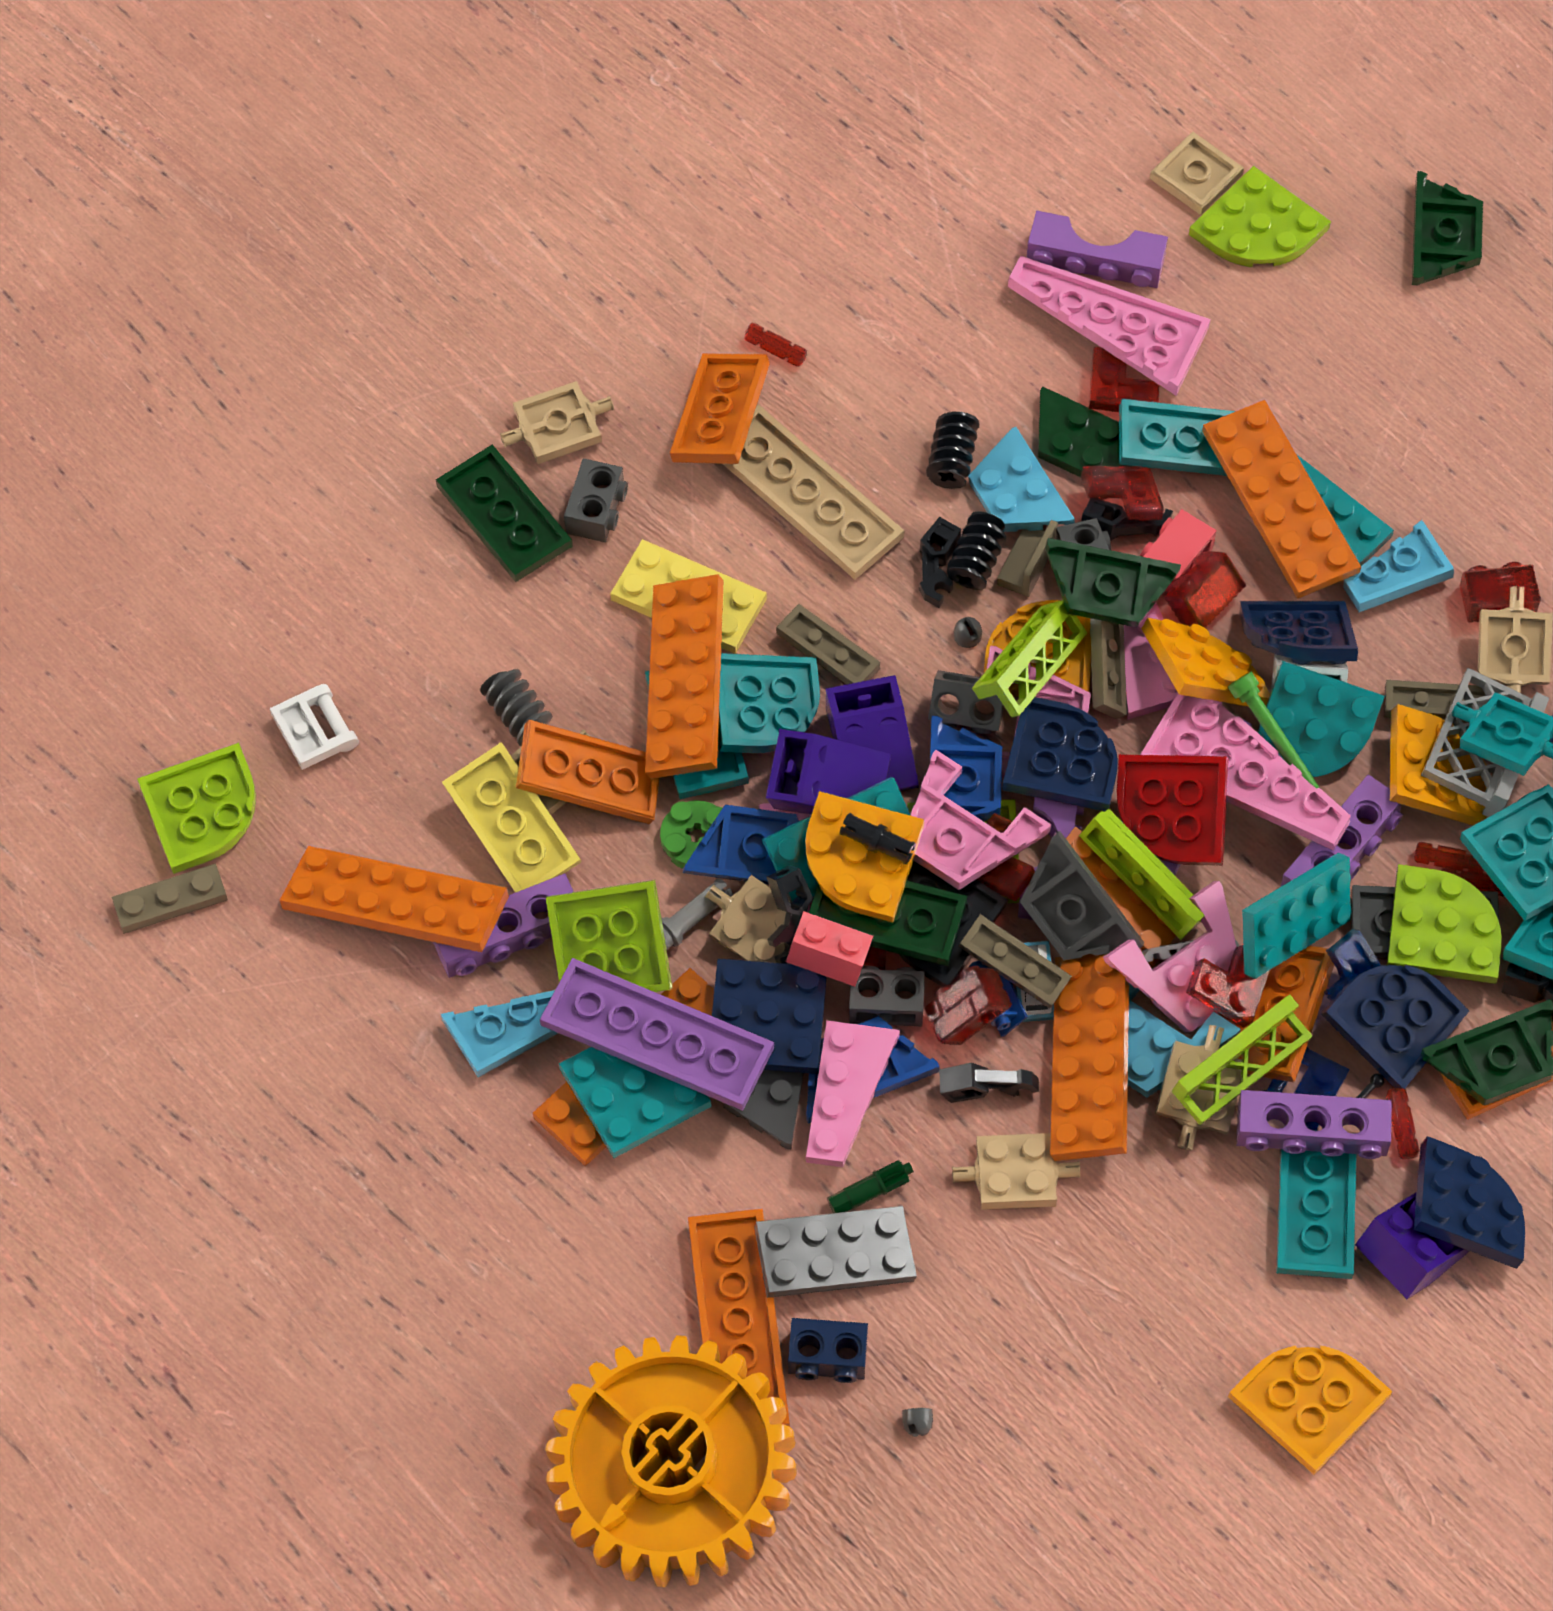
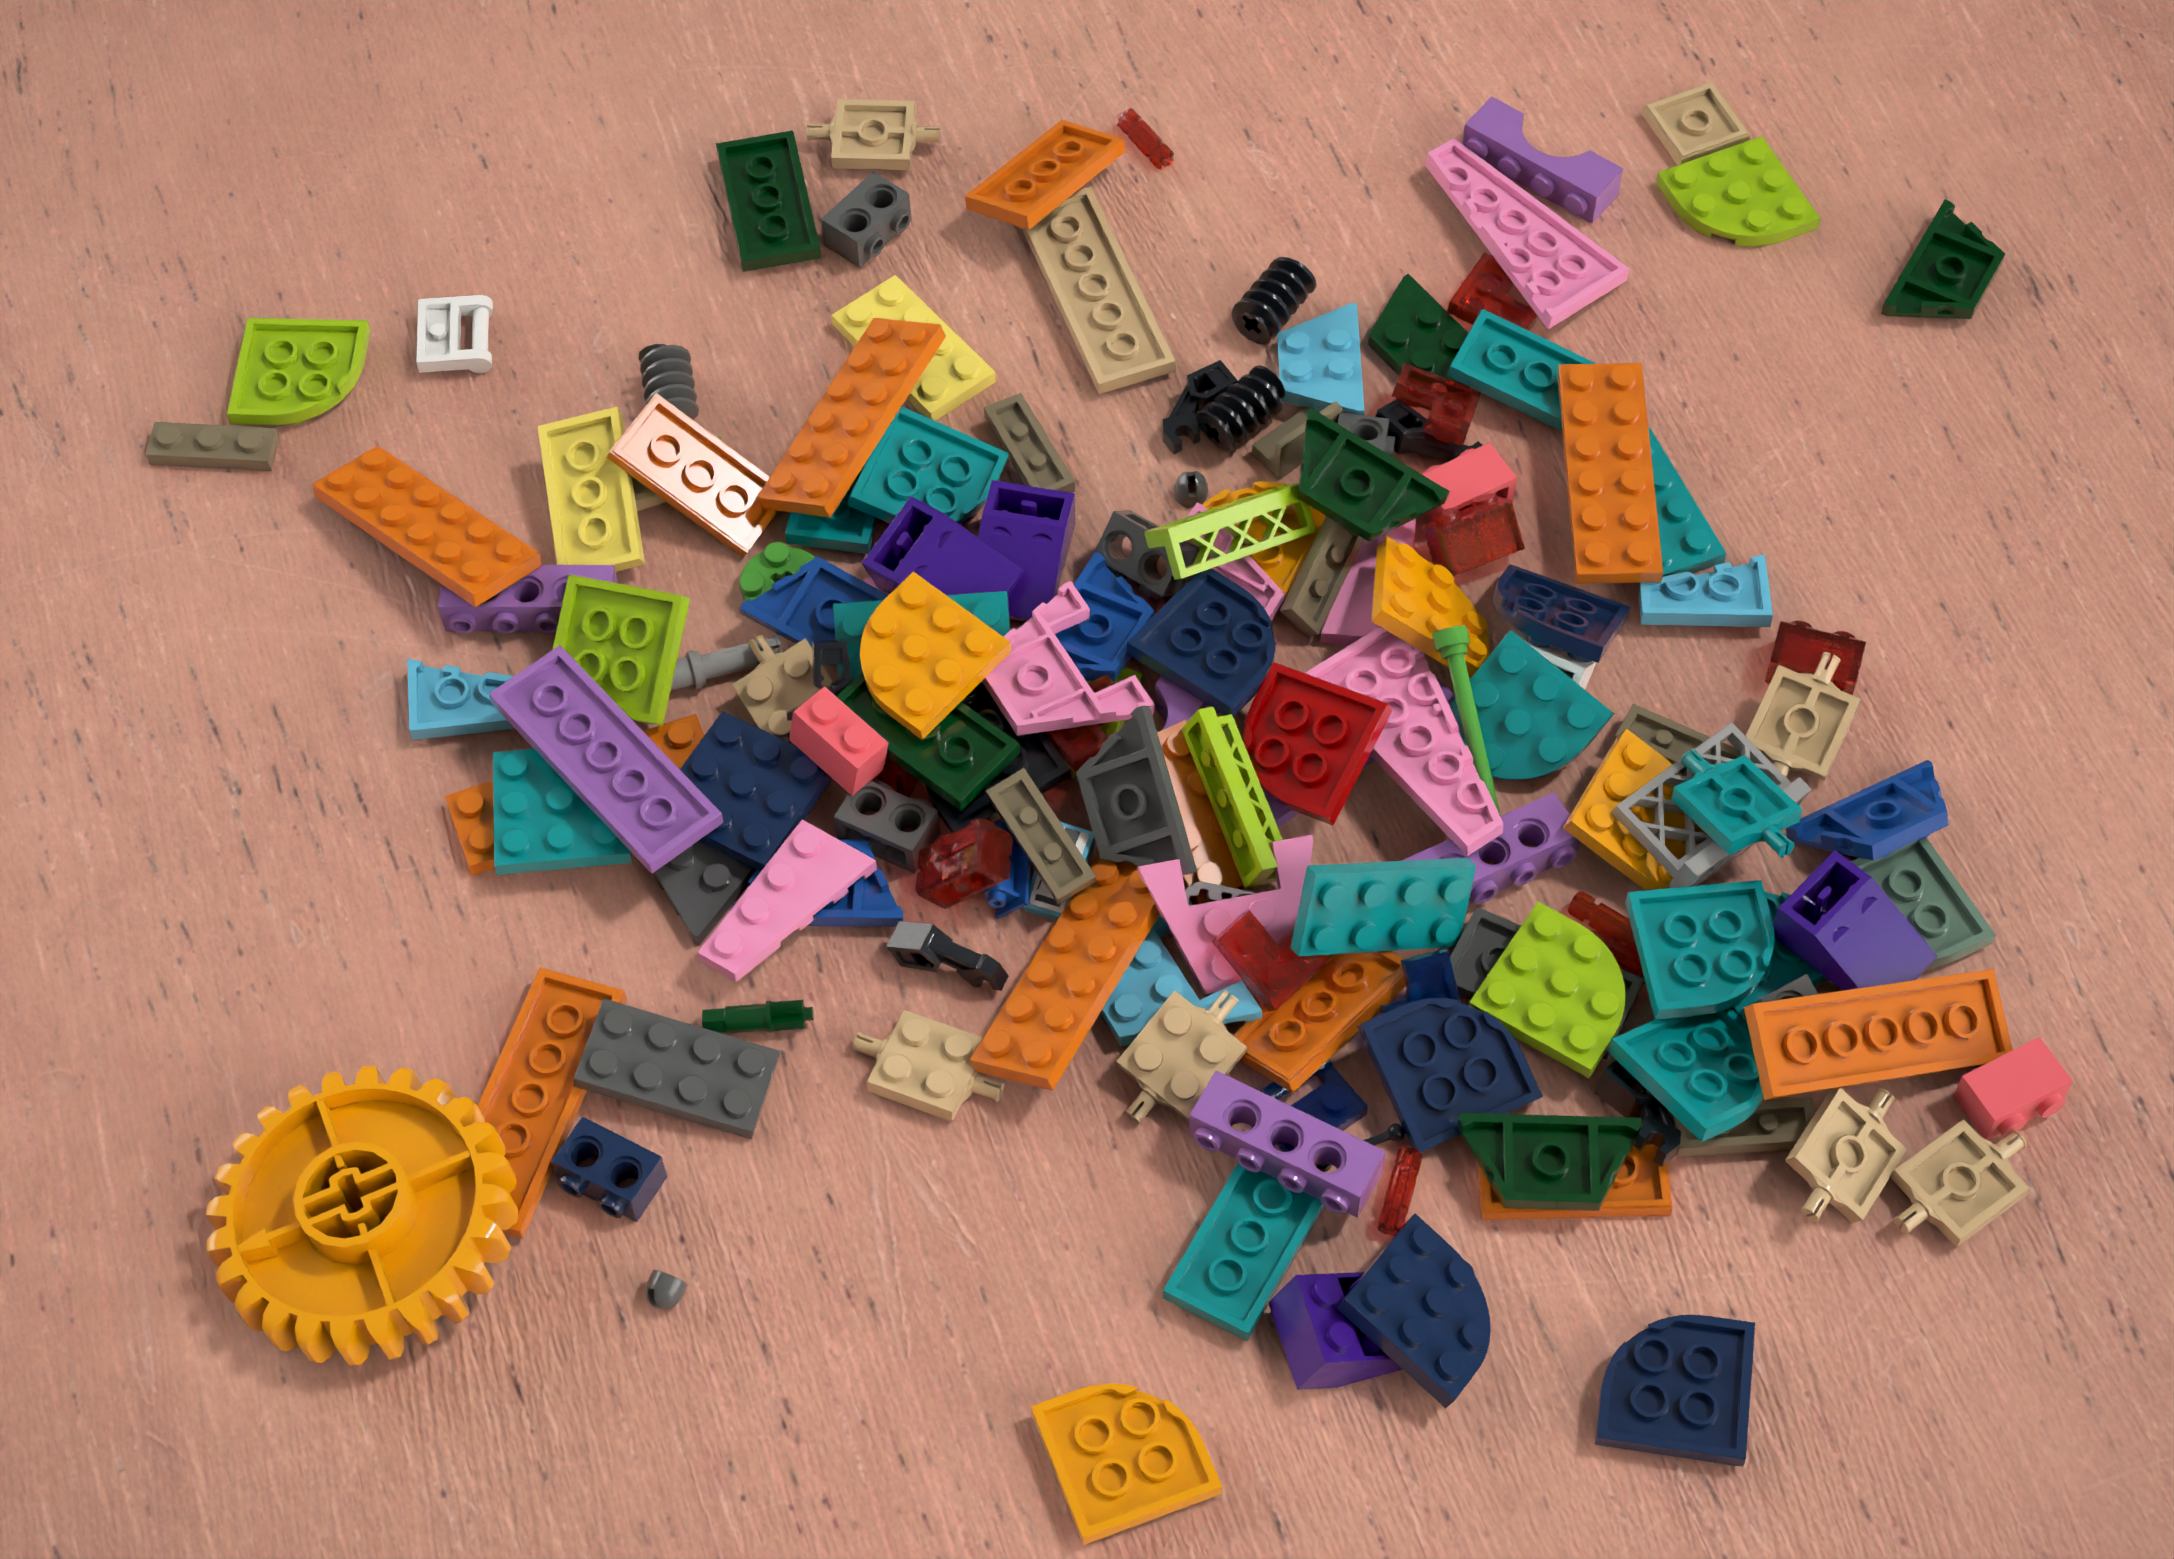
camera: 25 degrees right, 5 degrees down
(877, 838) = (942, 639): black pin -> none
(1238, 1046) = (1231, 1022): lime fence -> none

